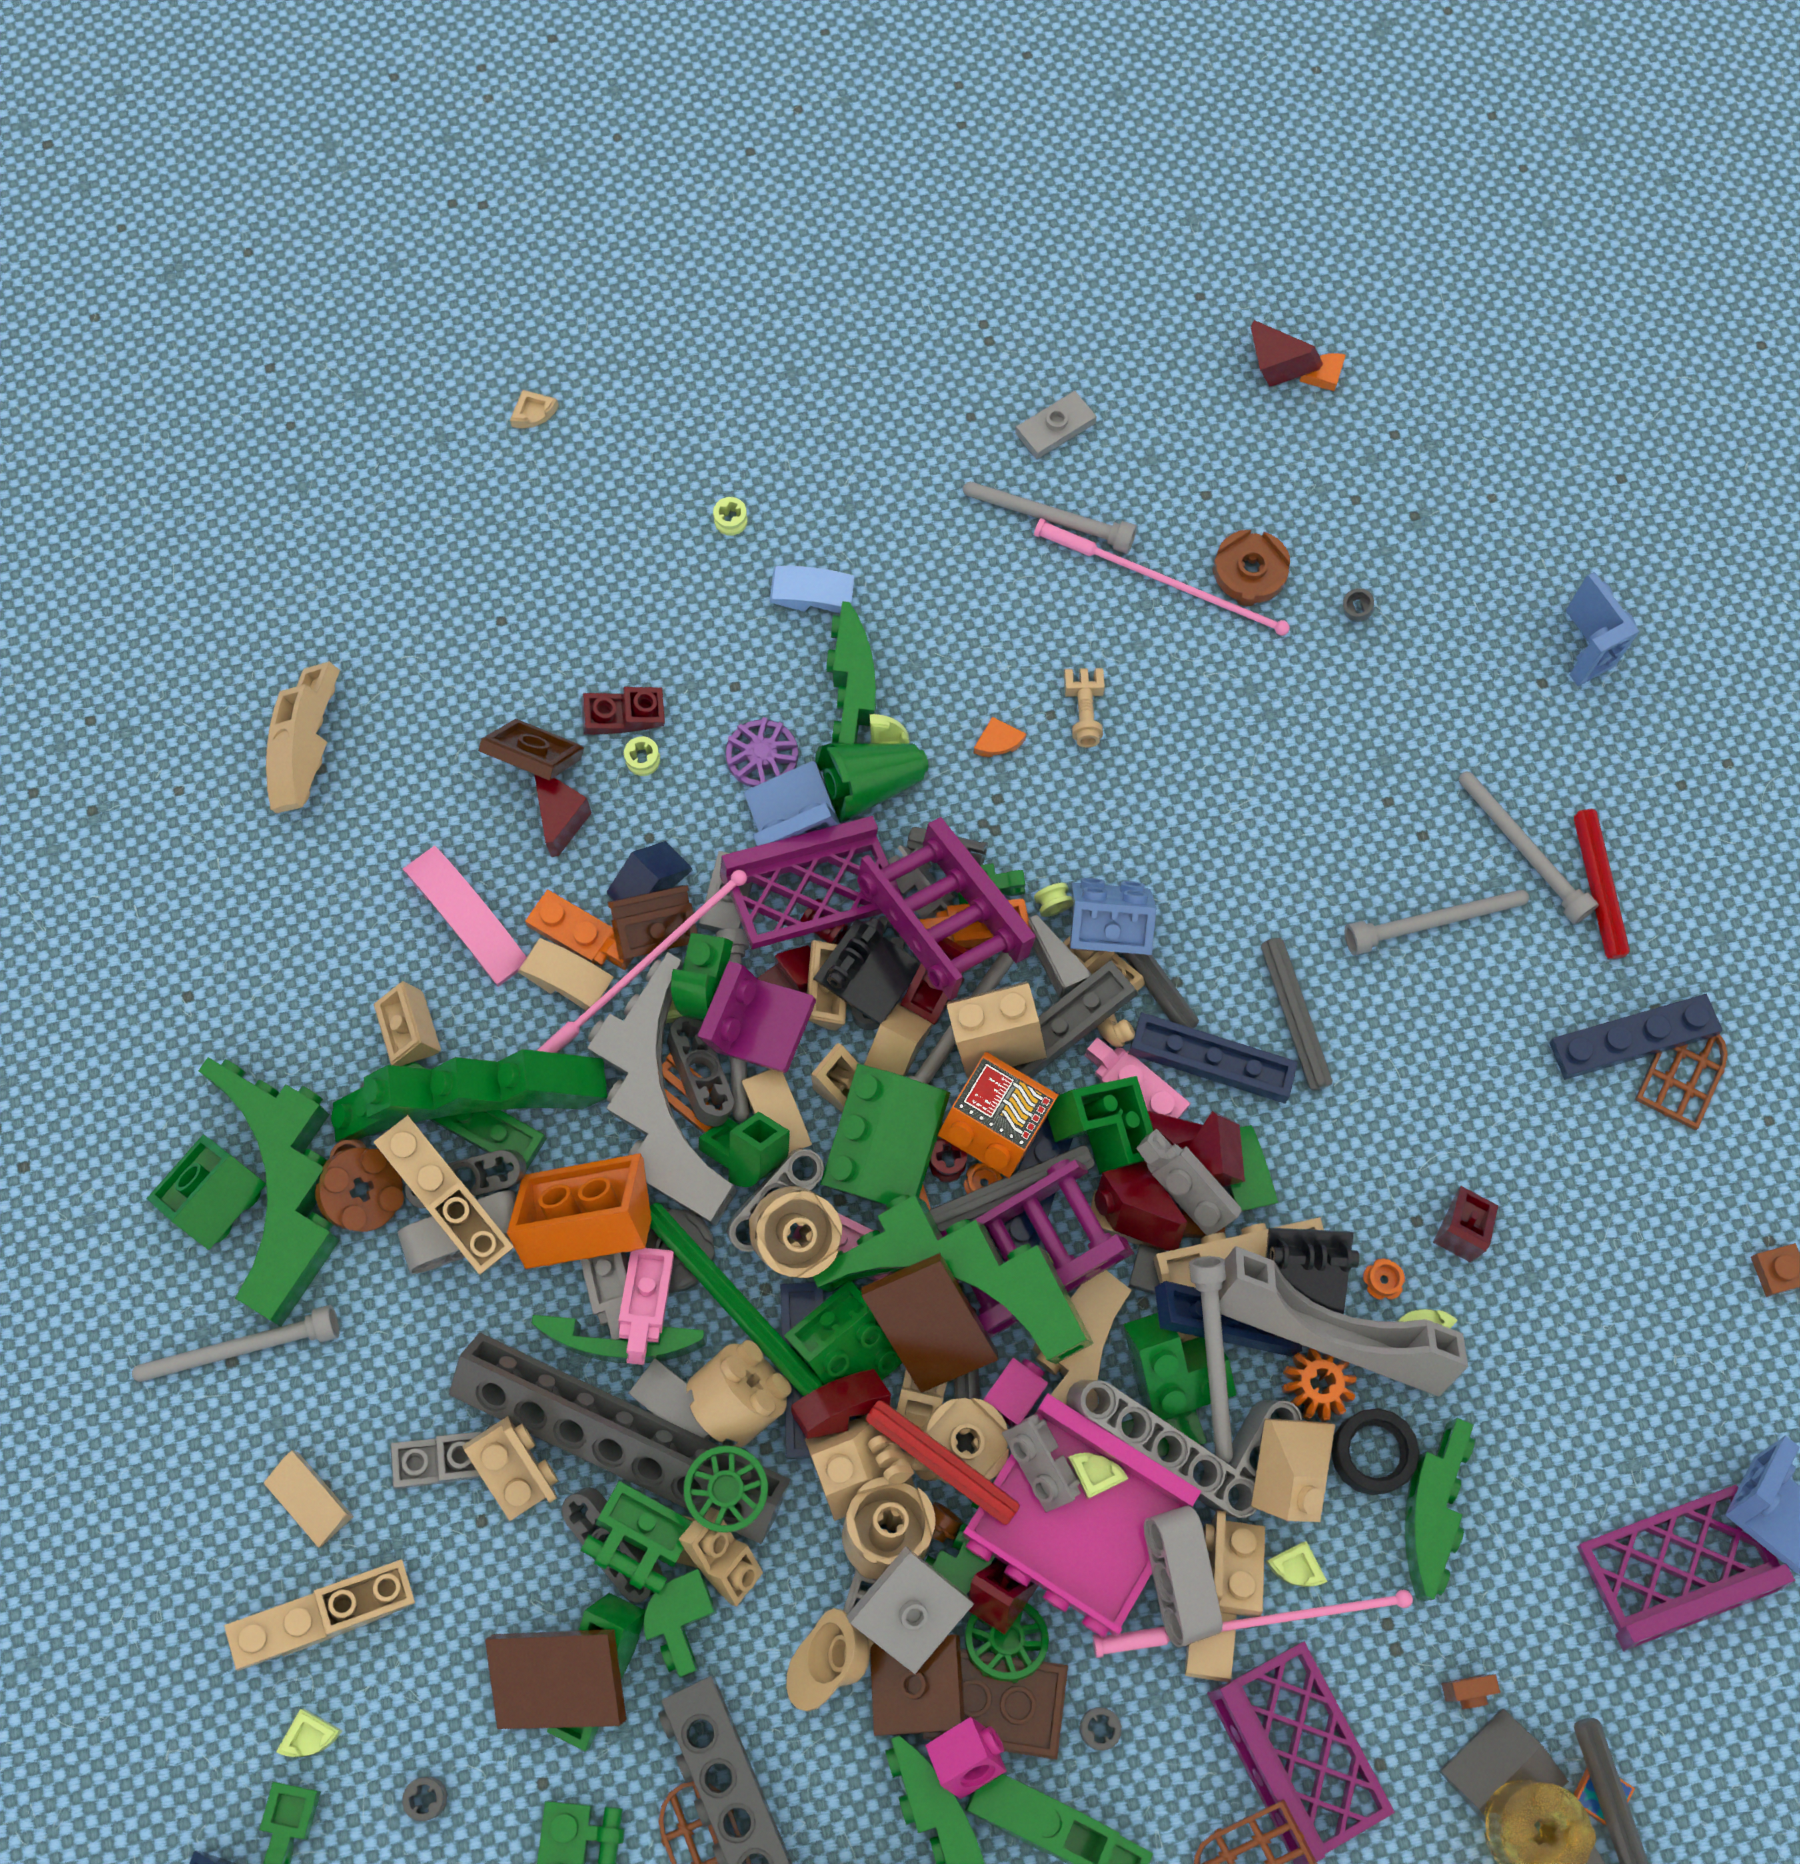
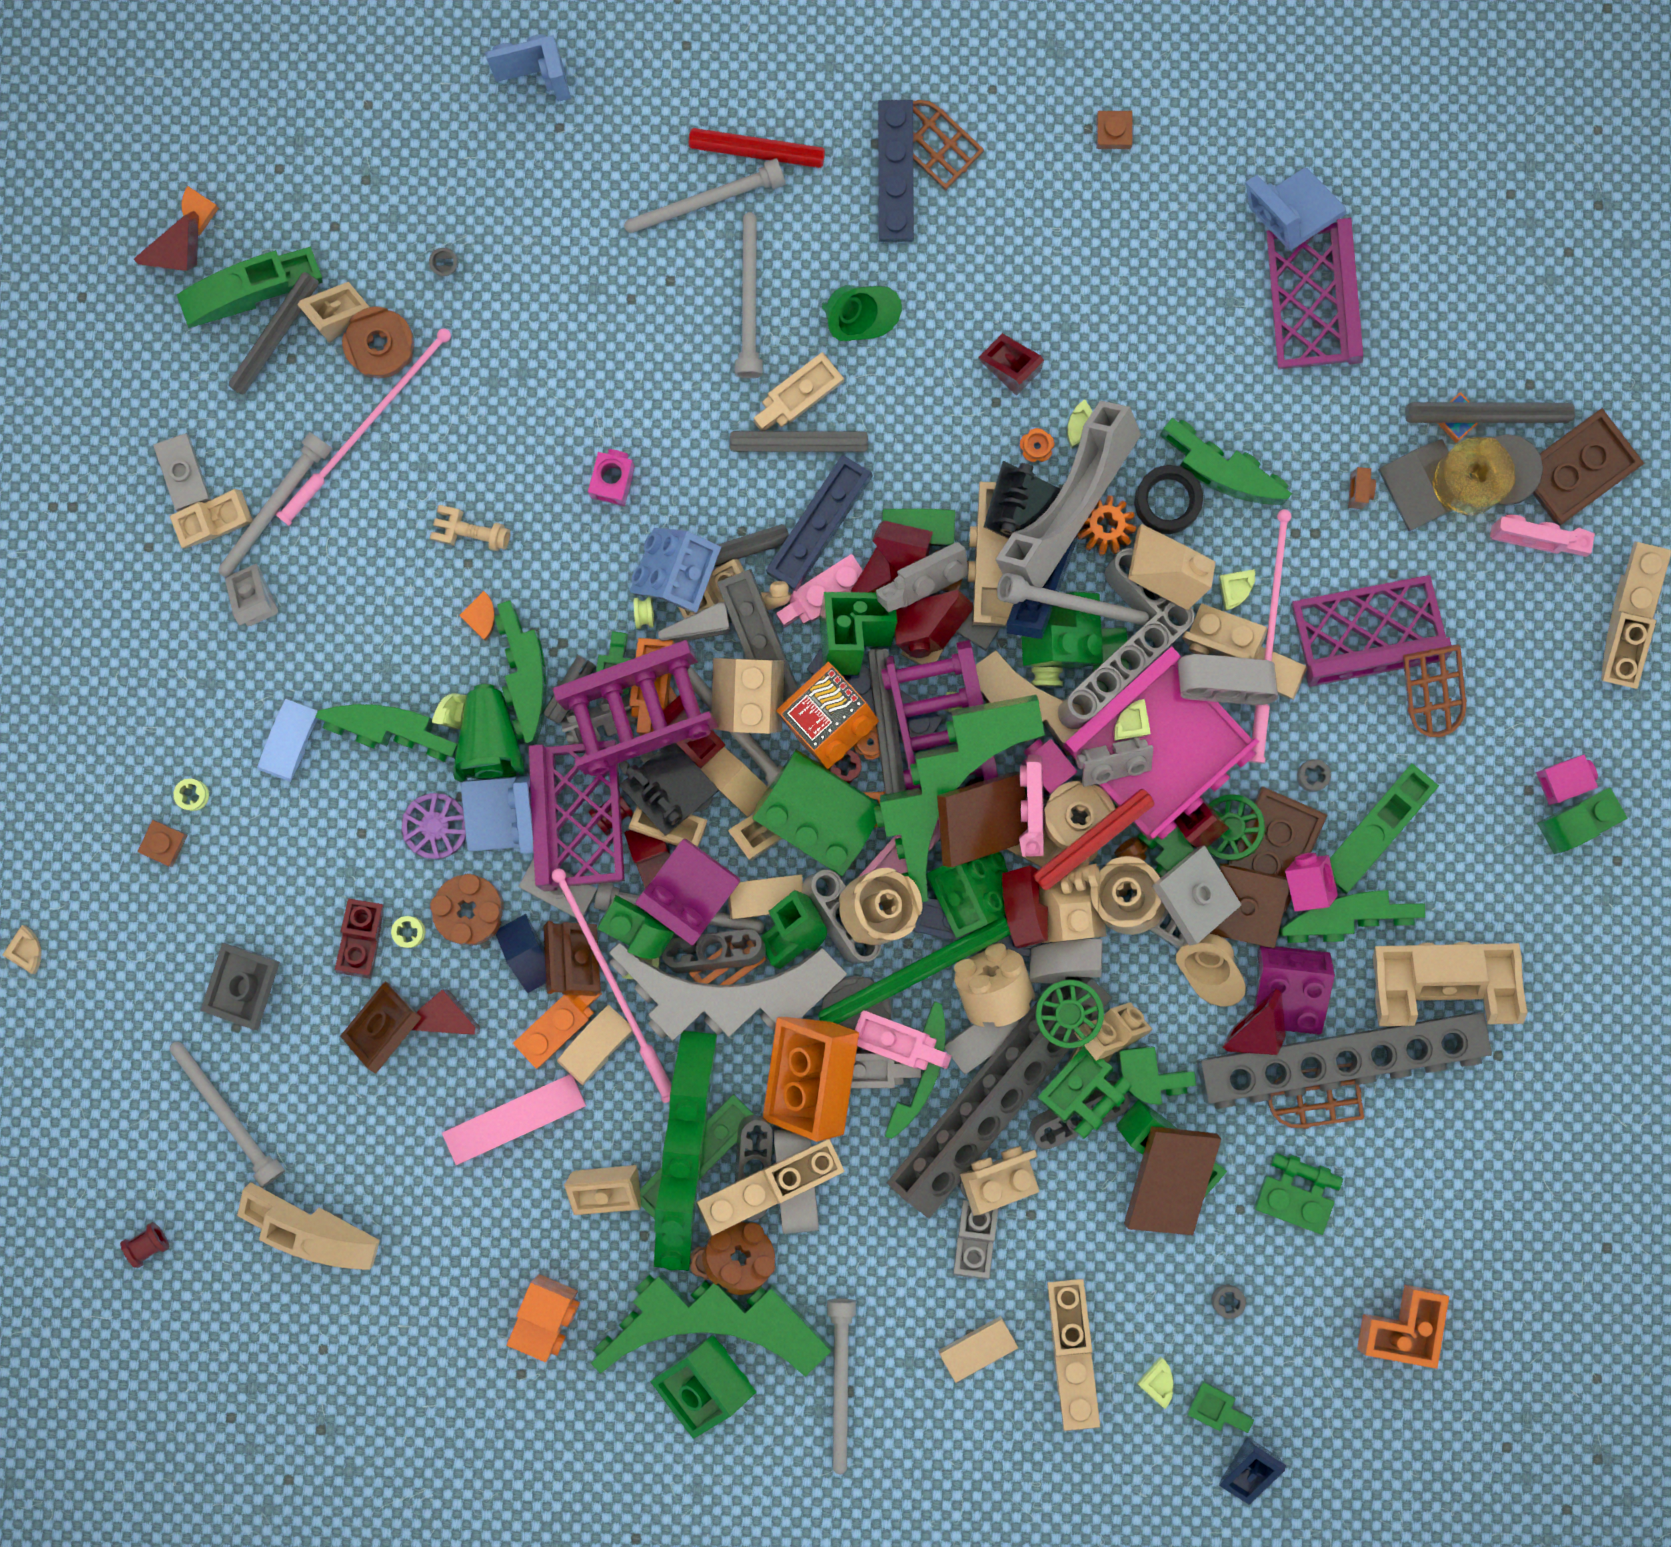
camera: 70 degrees left, 15 degrees up
(253, 995) = (541, 1318): none -> orange brick
(254, 589) = (144, 1245): none -> dark red bush
(358, 683) = (265, 1167): none -> light grey piece
(544, 608) = (240, 986): none -> dark grey slope
(673, 503) = (162, 843): none -> dark orange plate
(674, 787) = (447, 909): none -> dark orange plate
(767, 1744) = (1261, 1029): none -> dark red slope
(791, 1471) = (1066, 959): none -> light grey slope
(829, 1774) = (1303, 980): none -> magenta bracket
(948, 516) = (250, 596): none -> light grey slope
(962, 1382) = (1032, 809): none -> bright pink hinge
(963, 798) = (529, 685): none -> green slope
(1016, 463) = (211, 519): none -> tan slope
(1120, 1362) = (1047, 676): none -> yellowish green bush
(1178, 840) = (616, 492): none -> dark pink brick
(1226, 466) = (272, 334): none -> dark grey axle
(1269, 511) = (333, 309): none -> tan slope
(1270, 428) = (244, 284): none -> green slope
(1349, 998) = (799, 393): none -> tan hinge
(1464, 1040) = (862, 312): none -> green piece

